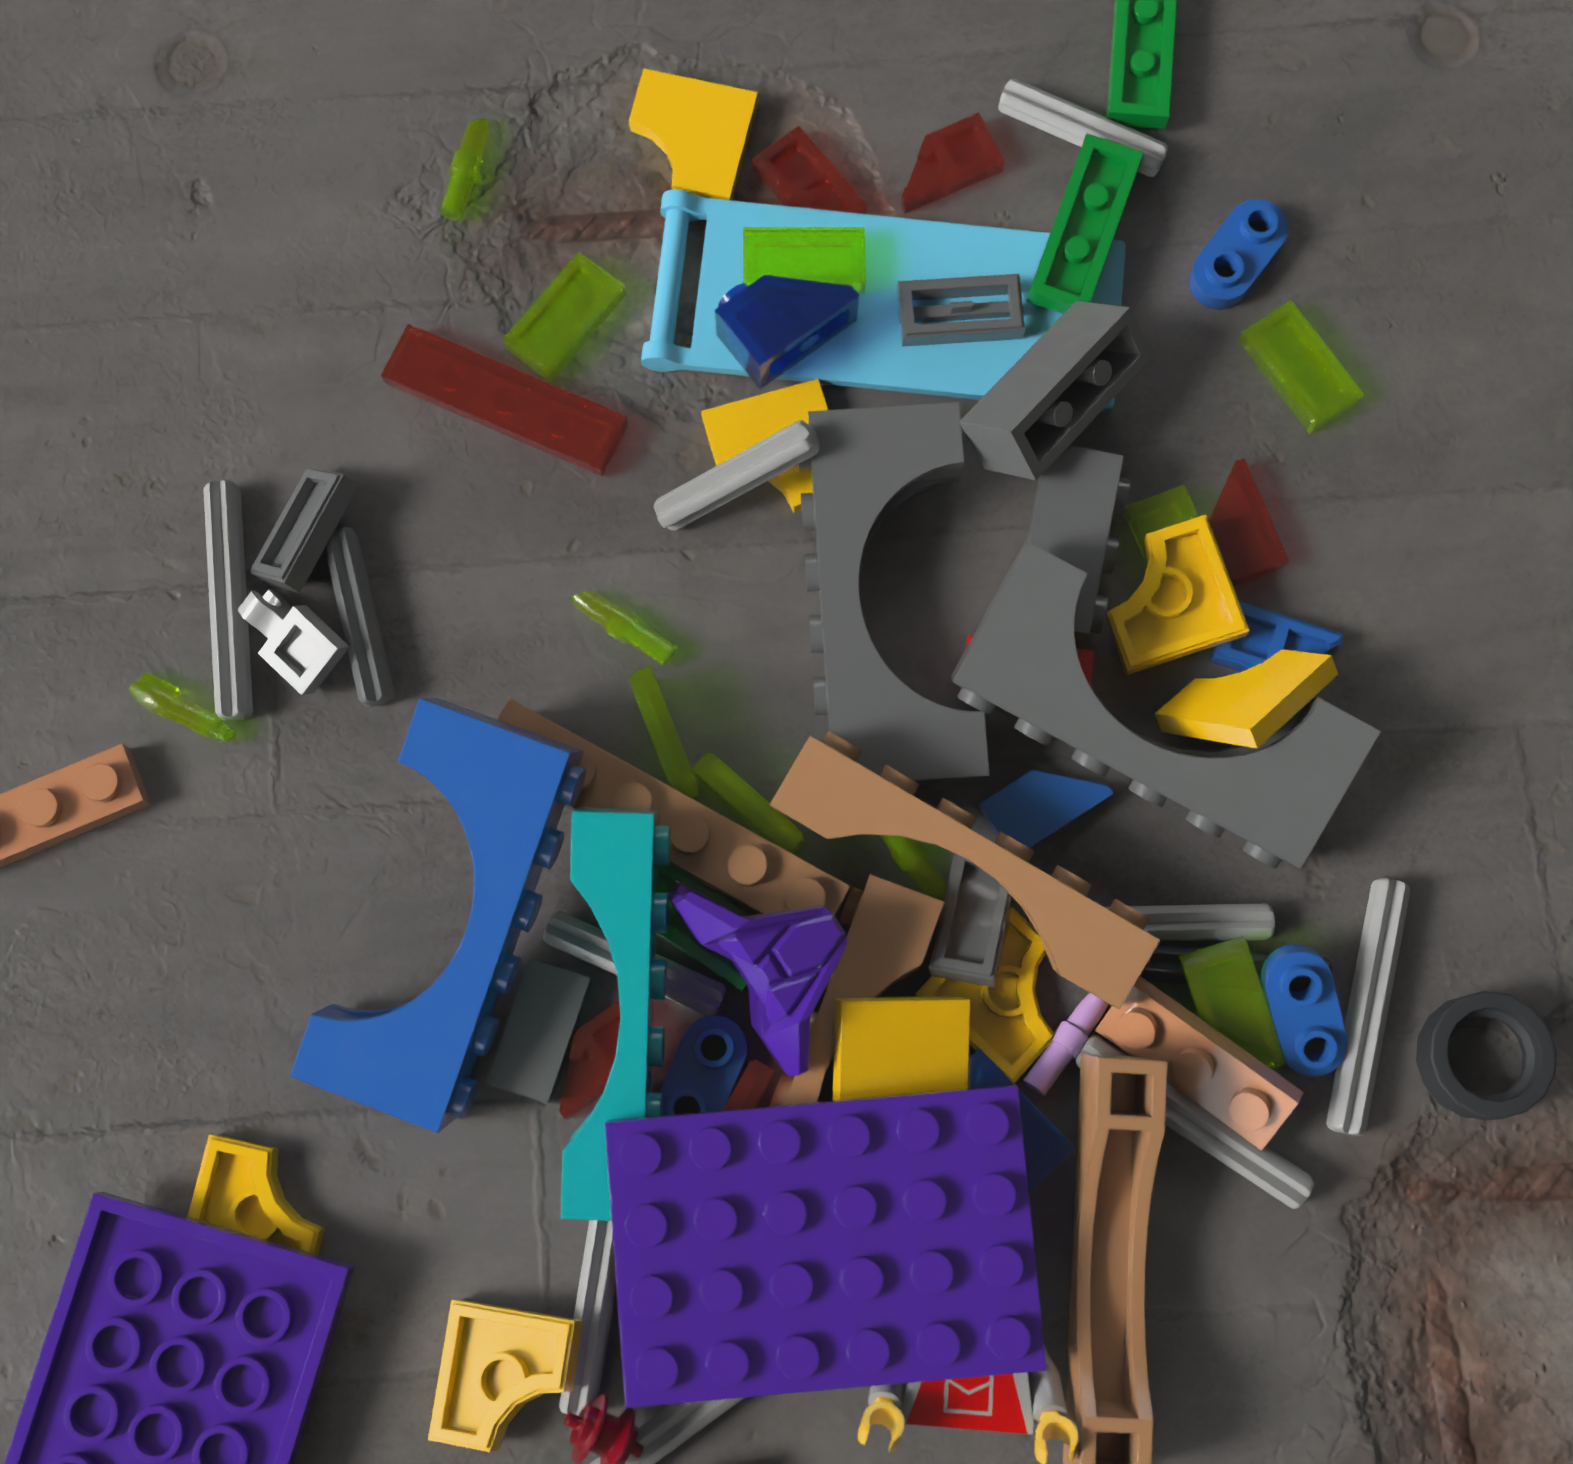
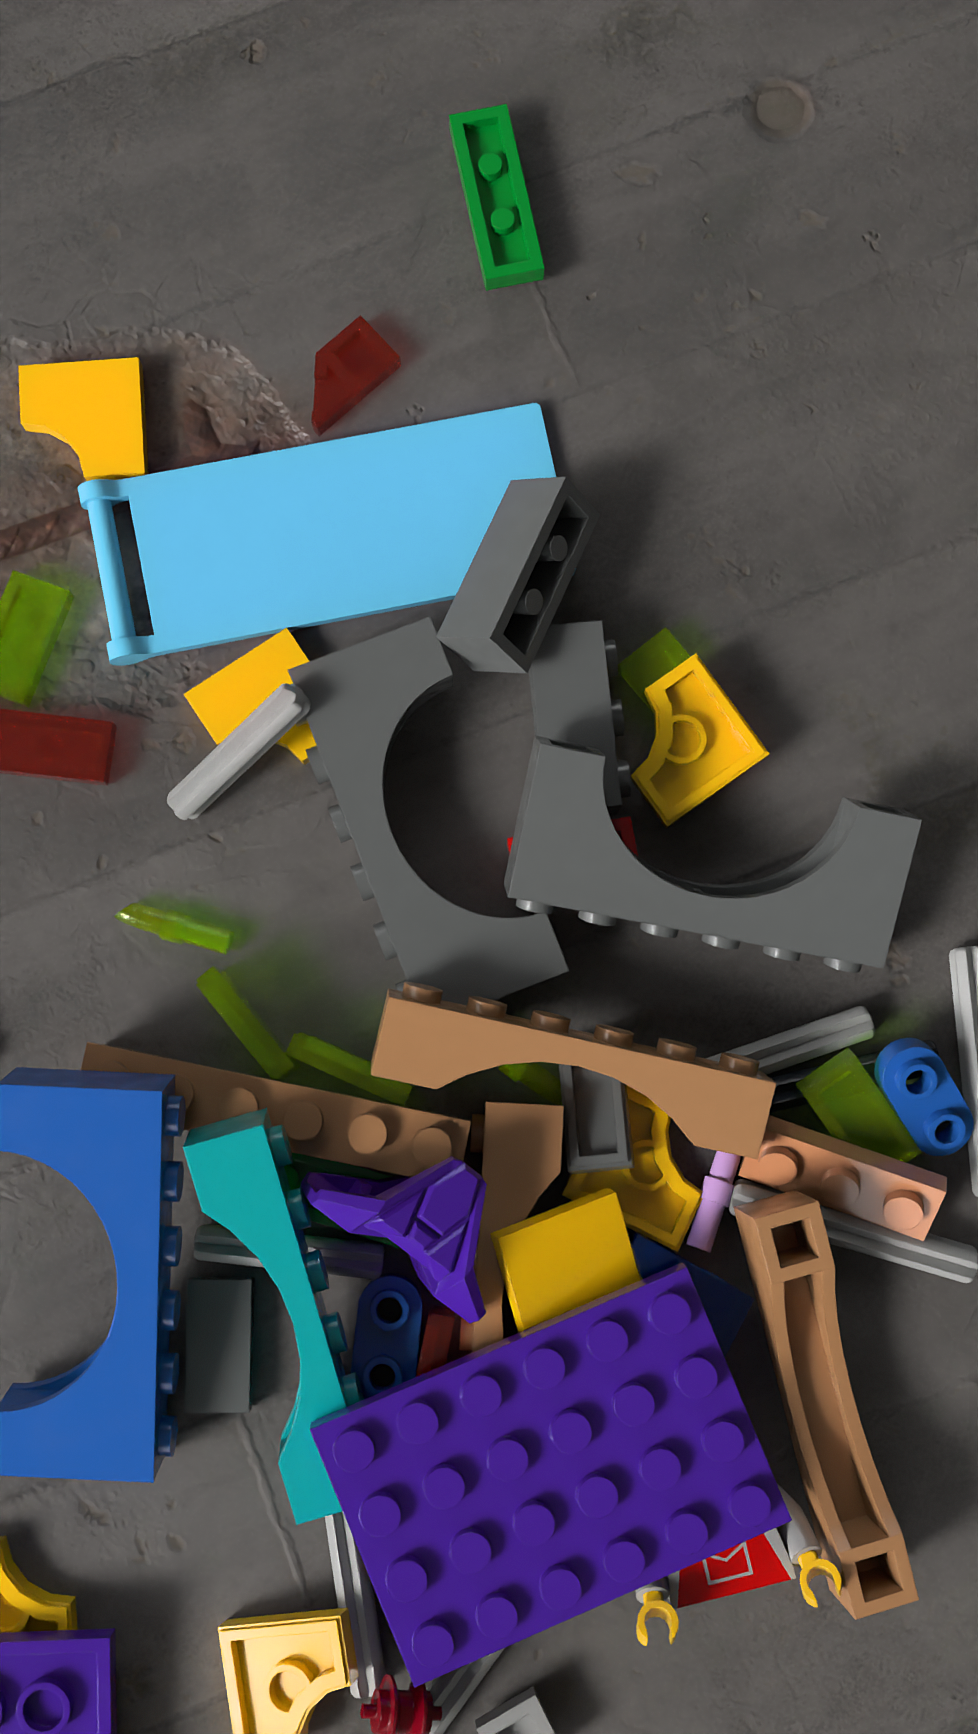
camera: 25 degrees left, 5 degrees up
(591, 1061) = (277, 1358): clear red tile -> none
(781, 322) = (233, 585): clear blue slope -> none
(804, 176) = (211, 428): clear red tile -> none
(806, 254) = (236, 514): clear neon green tile -> none
(960, 331) = (412, 539): dark grey tile -> none
(1041, 805) = (623, 980): blue tile -> none
(1073, 122) = (464, 300): light grey axle -> none
(1085, 224) = (496, 399): green plate -> none
(1240, 250) = (649, 380): blue plate -> none
(1245, 528) = (734, 651): clear red tile -> none
(1248, 704) = (790, 826): yellow tile -> none
(1269, 635) = (794, 755): blue tile -> none
(1300, 367) = (739, 477): clear neon green tile -> none

